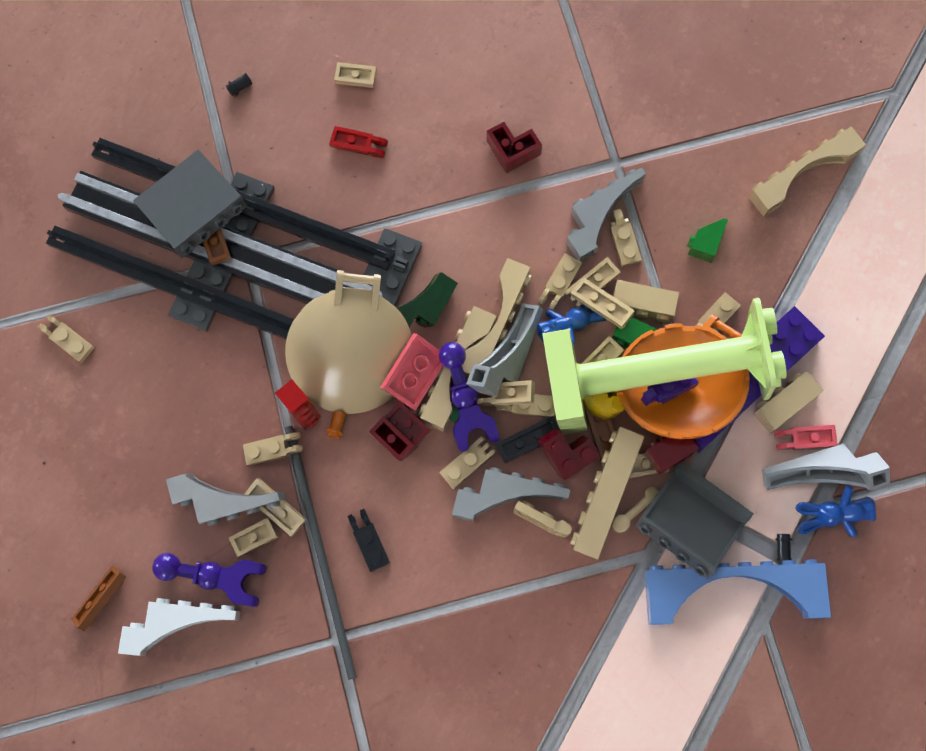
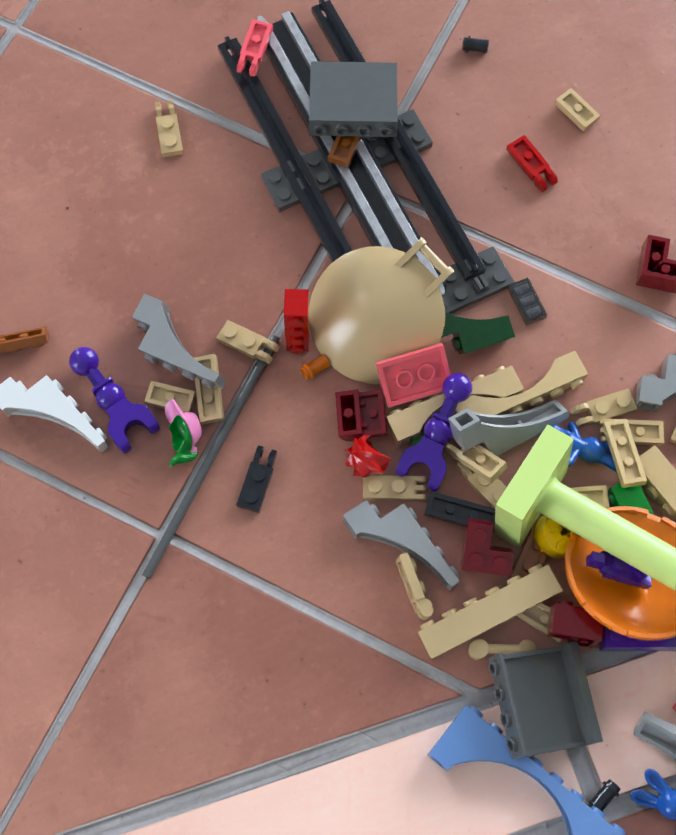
camera: 35 degrees right, 5 degrees down
(77, 221) = (254, 45): none -> coral hinge
(288, 553) = (185, 433): none -> hair
(432, 459) = (366, 458): none -> red hair
(442, 248) = (527, 301): none -> tile

